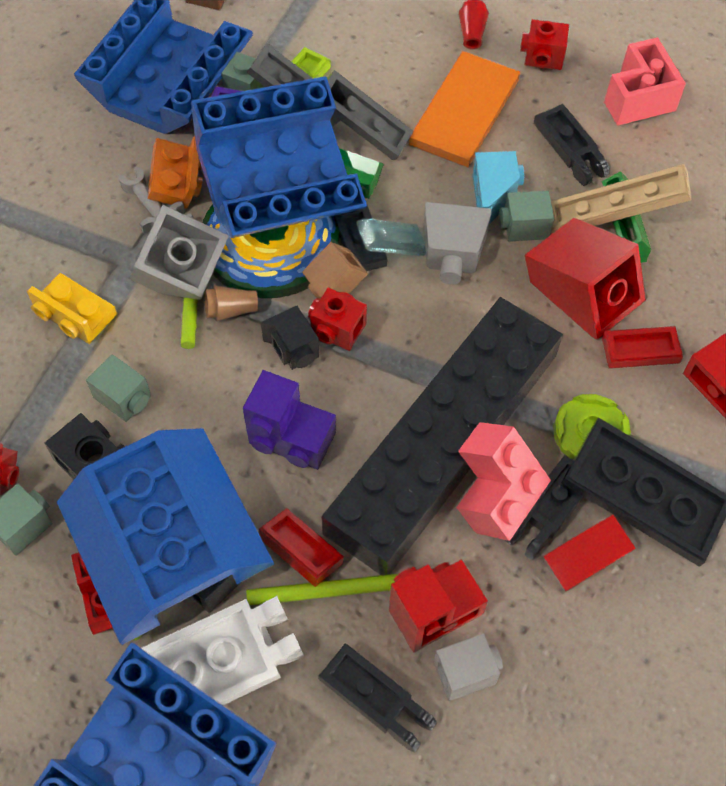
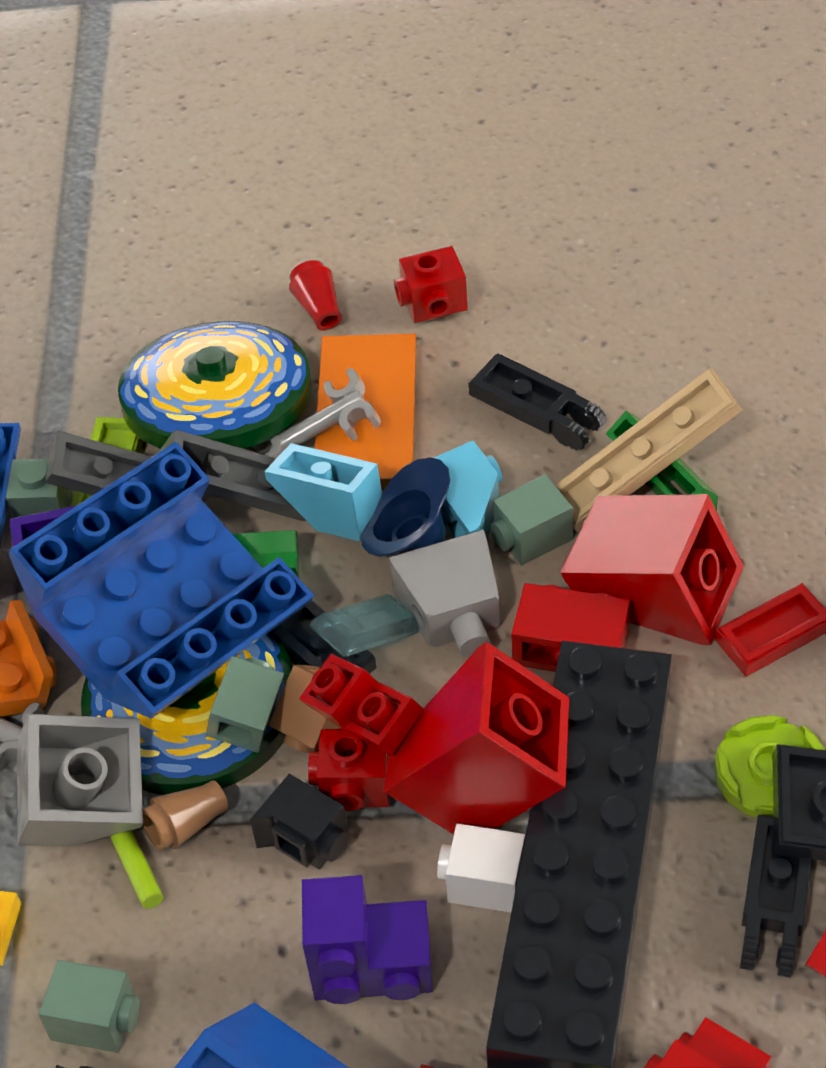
camera: 20 degrees left, 10 degrees down
(293, 252) = (245, 703): none -> sand green brick
(355, 282) = (361, 704): none -> red slope
(380, 408) = (481, 867): none -> white brick
(383, 55) = (217, 383): none -> dish
(413, 146) = (327, 489): none -> medium azure slope
(414, 338) = (483, 746): none -> red slope
(451, 101) = (346, 410): none -> light grey bar
(454, 179) = (409, 510): none -> dark blue piece
(506, 480) = (705, 887): coral brick -> none
(515, 284) = (557, 615): none -> red brick
(646, 84) = (591, 285): coral brick -> none

